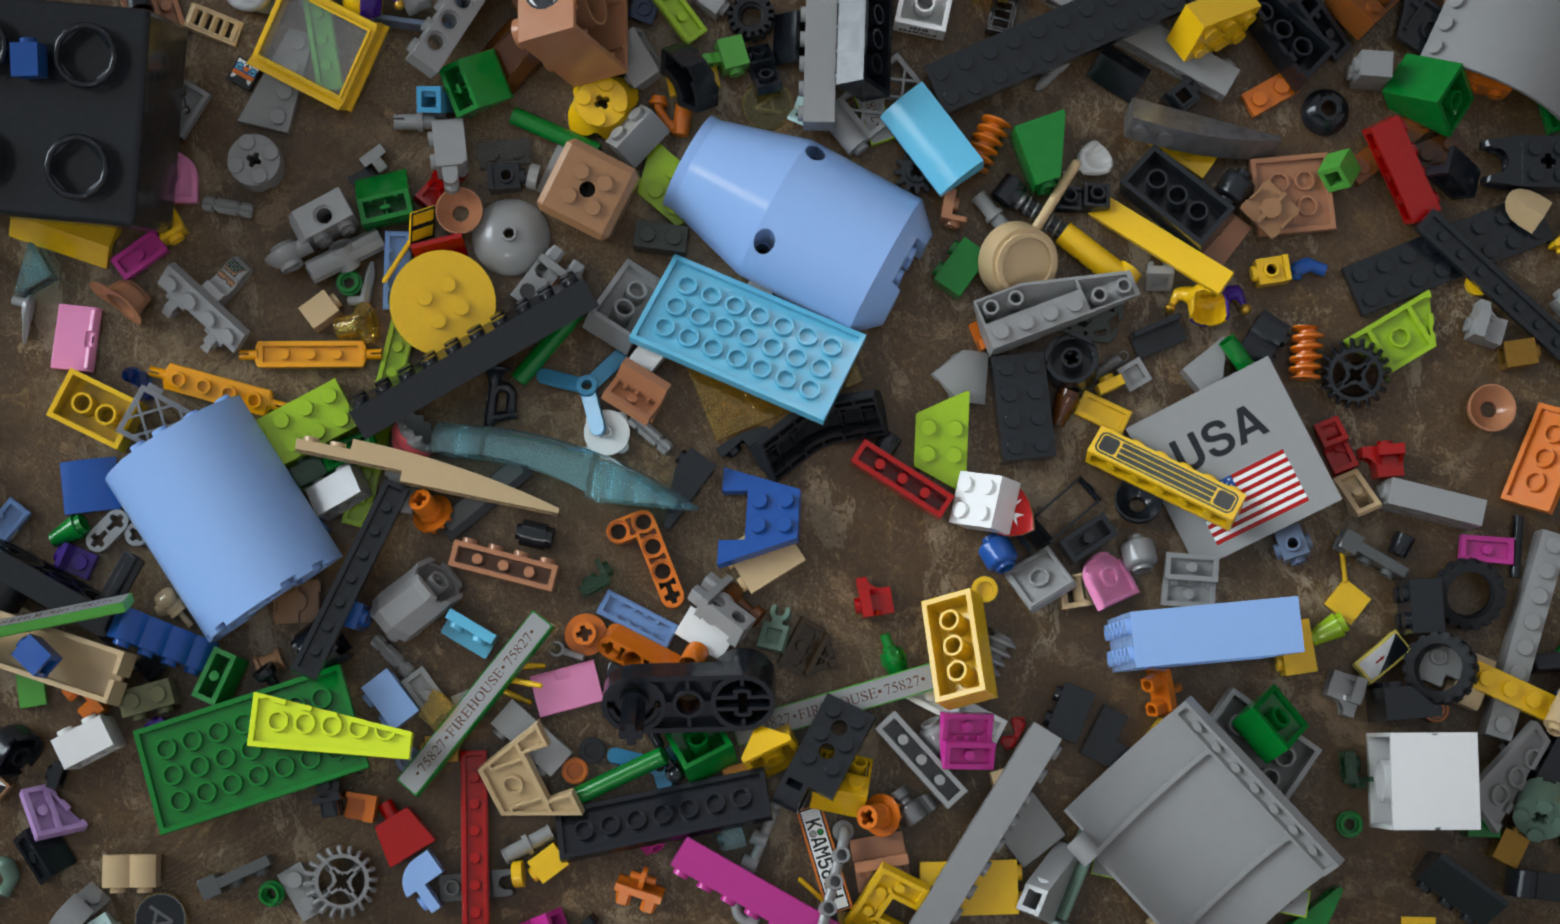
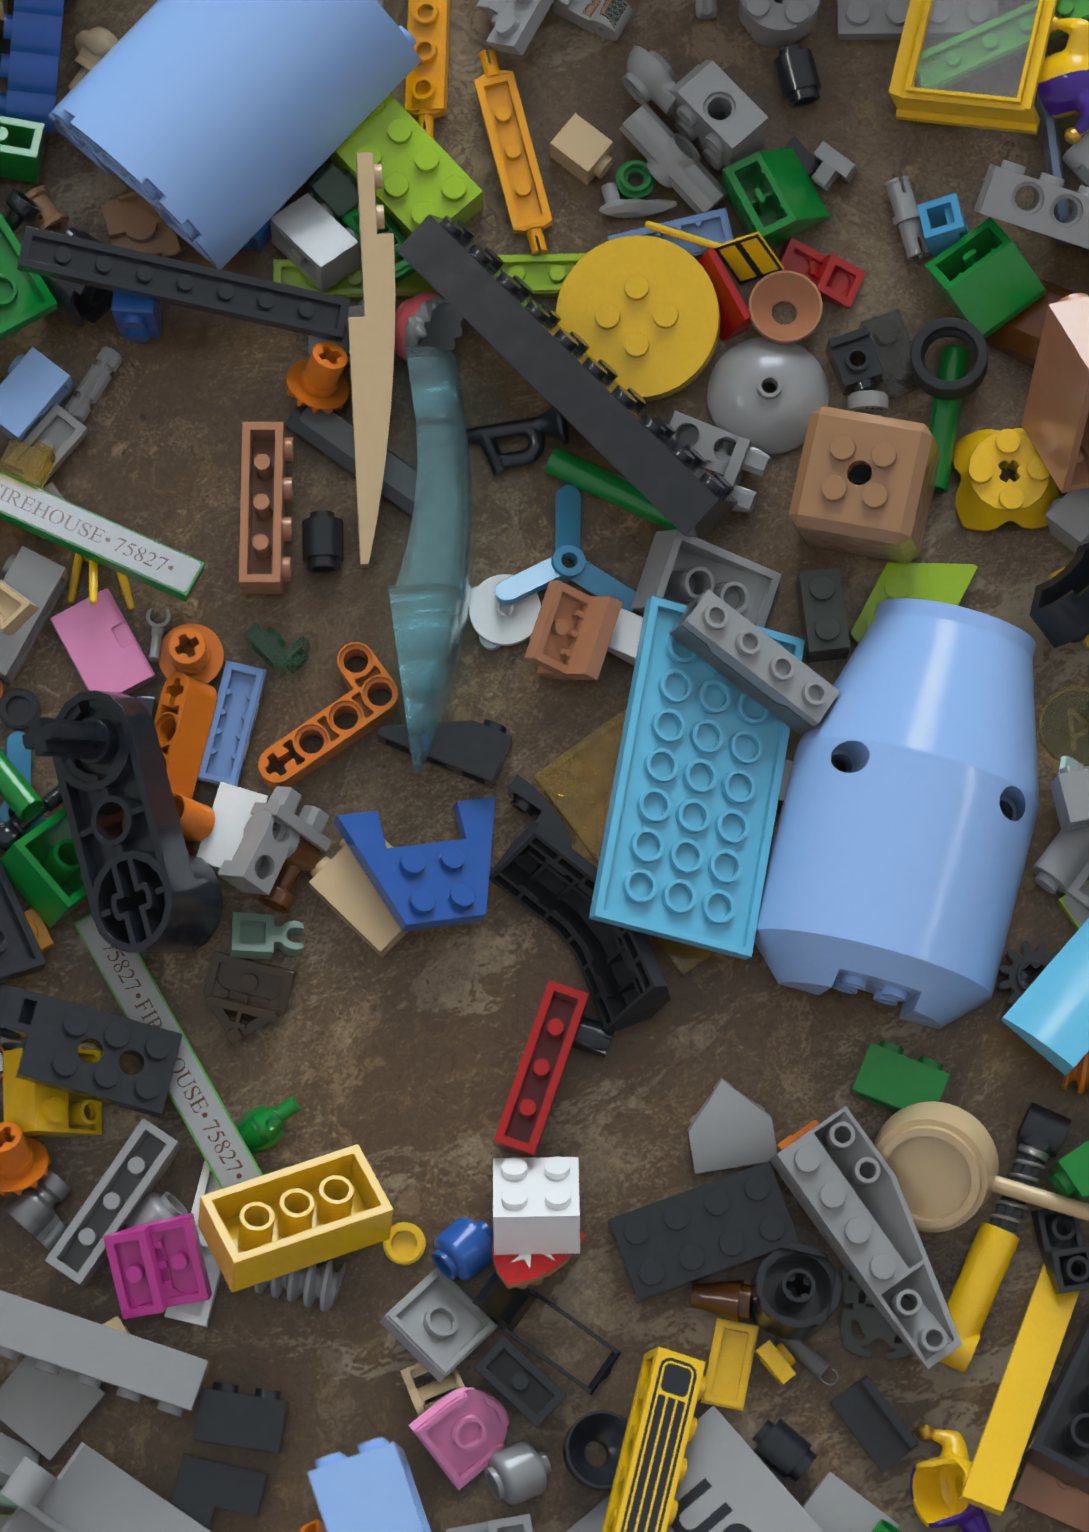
camera: 80 degrees right, 5 degrees down
(308, 164) = (797, 75): none -> black brick
(359, 324) = (576, 209): clear yellow gear -> none
(416, 600) = (181, 393): light grey brick -> none
(450, 152) = (870, 269): light grey hinge -> none
(469, 633) = (152, 484): medium azure bracket -> none
(504, 107) = (949, 328): none -> black tyre
(637, 135) = (972, 538): light grey brick -> none
(652, 435) = (515, 682): light grey axle -> none
(681, 123) = (1012, 601): orange plant -> none
(686, 285) = (754, 662): none -> light grey piece
(770, 749) = (76, 967): yellow slope -> none
(872, 600) = (344, 1071): red brick -> none
(943, 439) = (623, 1121): lime wing -> none
(950, 204) = (996, 1042): nougat bracket -> none
(988, 208) = (1001, 1114): light grey pin -> none
(1018, 725) = (204, 1348): red piece -> none
(1134, 374) = (802, 1398): light grey plate -> none
(1159, 277) = (969, 1401): light grey tile -> none
(1161, 393) = (784, 1449): none -> black brick

